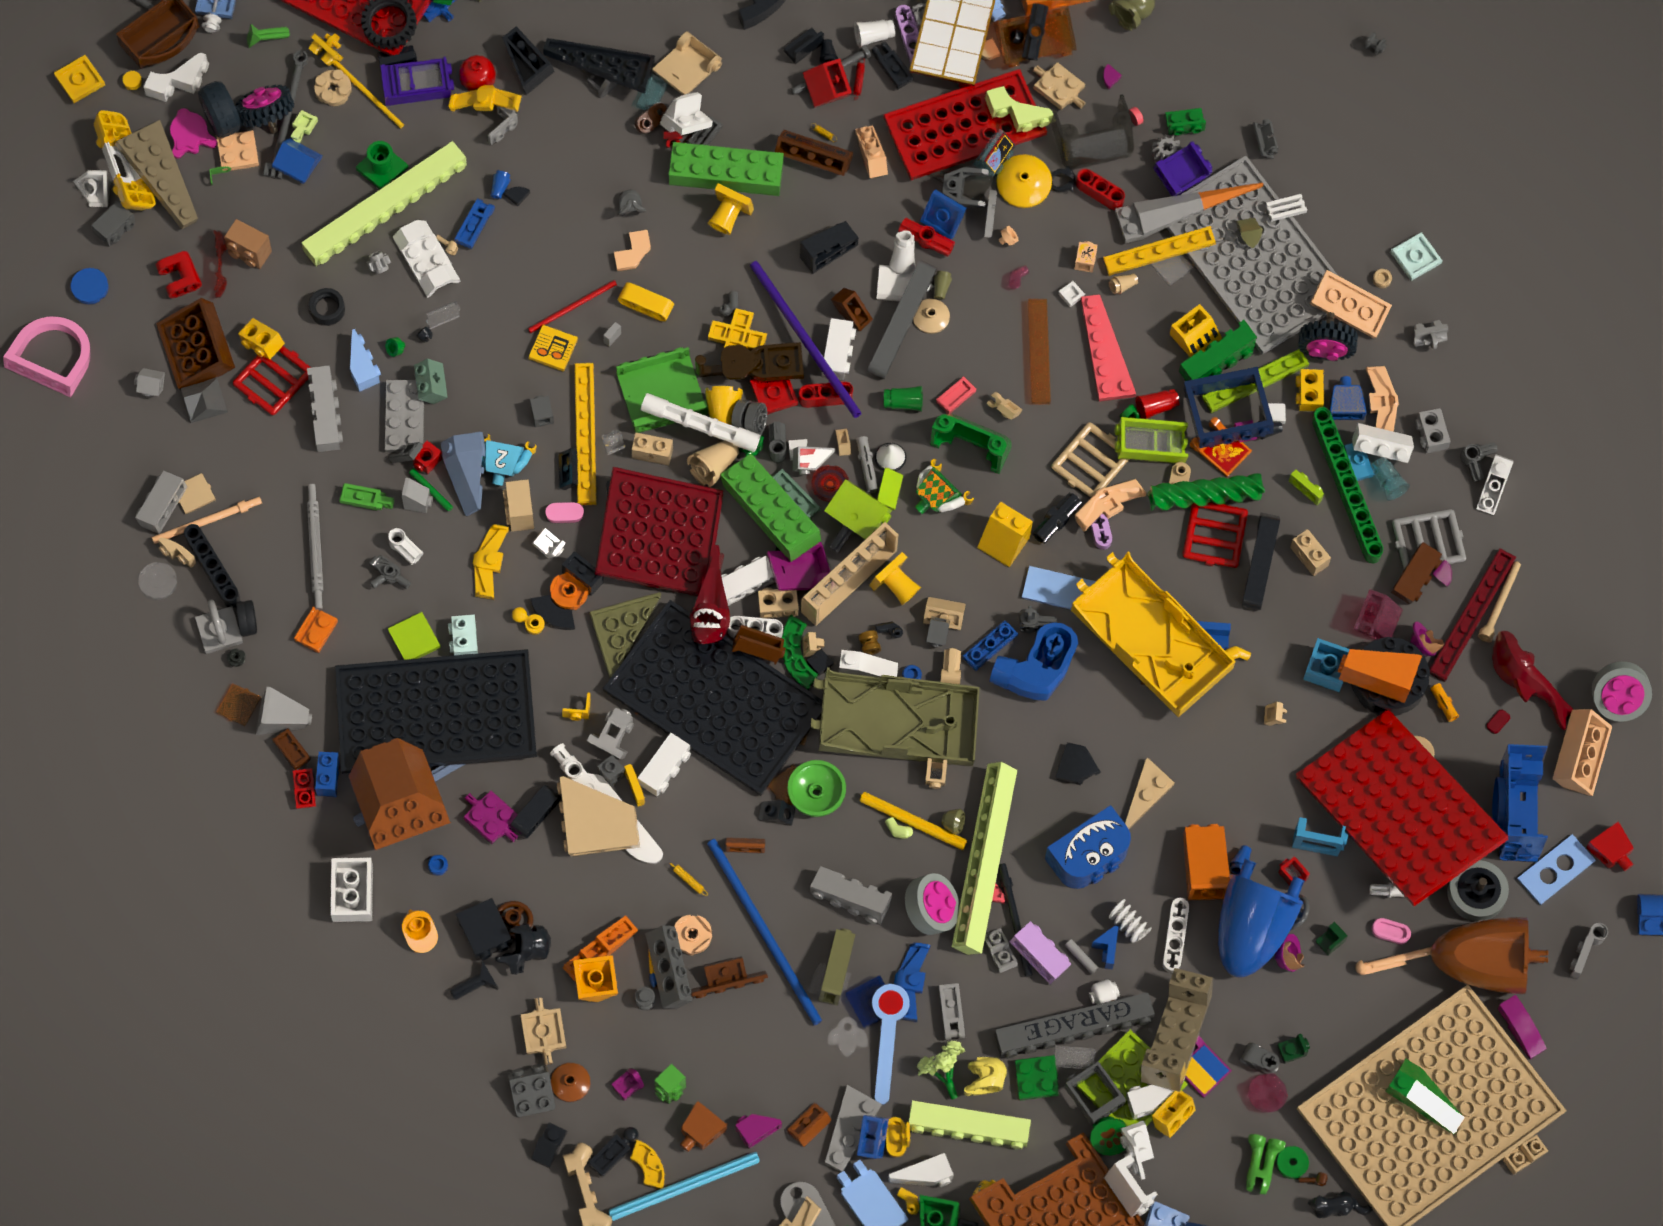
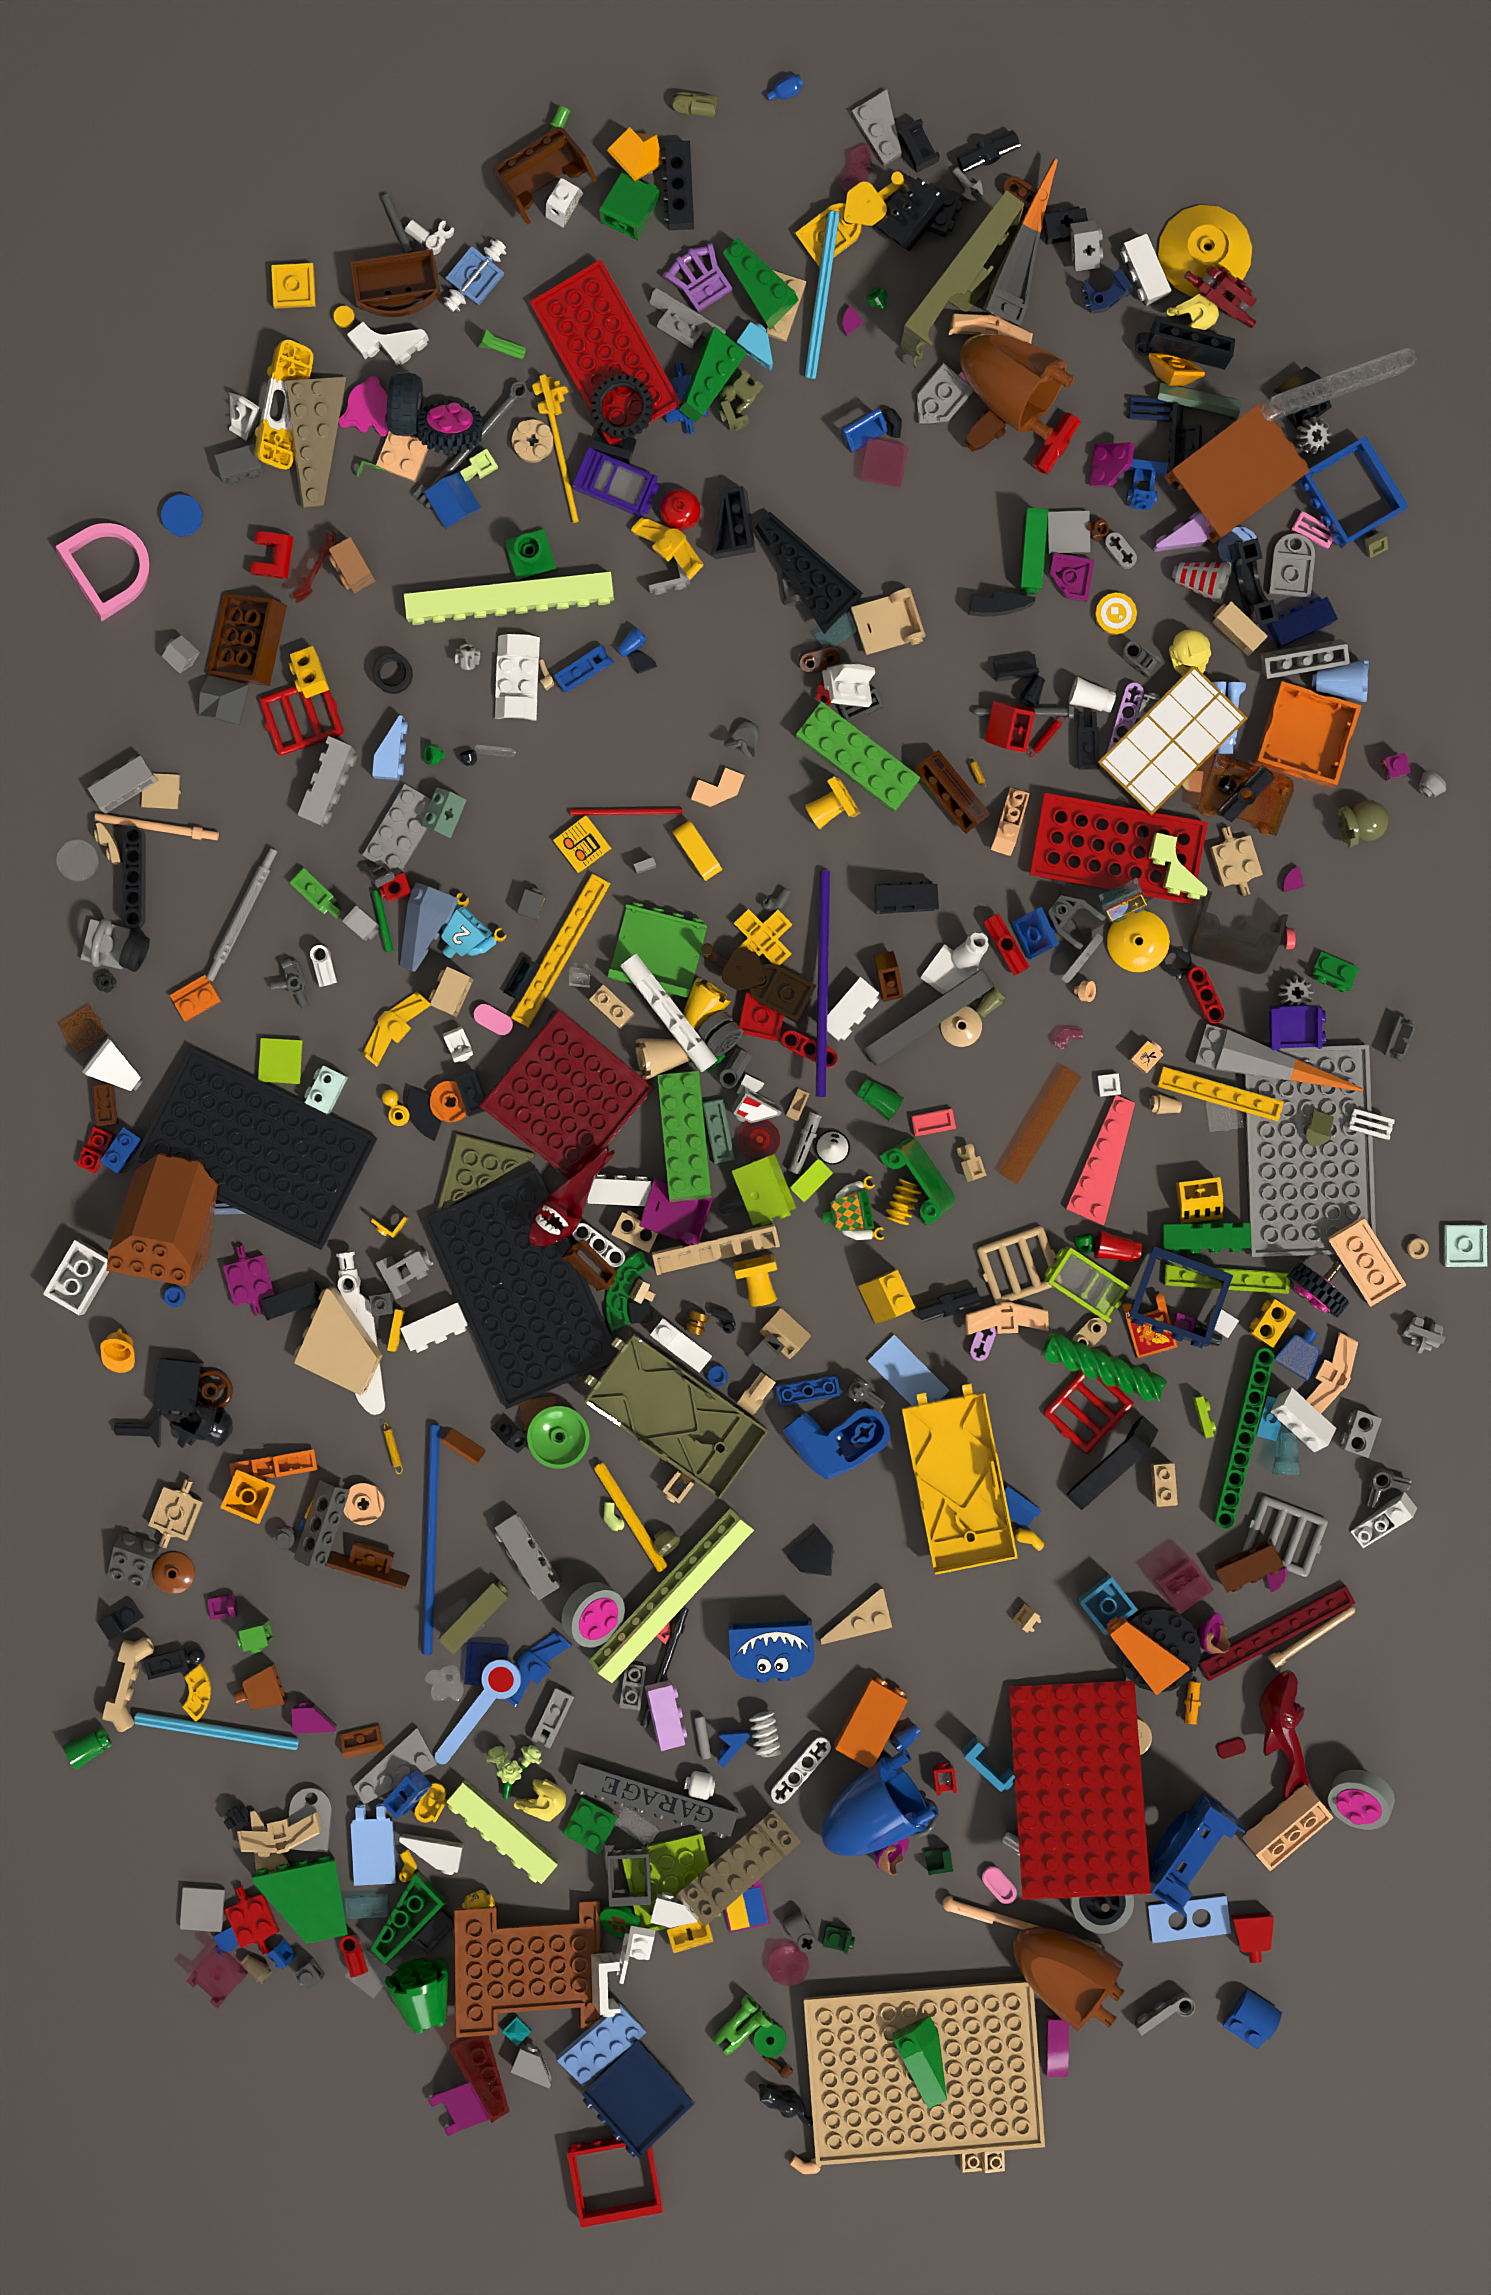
camera: 40 degrees right, 20 degrees up
(970, 462) = (903, 1202): none -> yellow piece

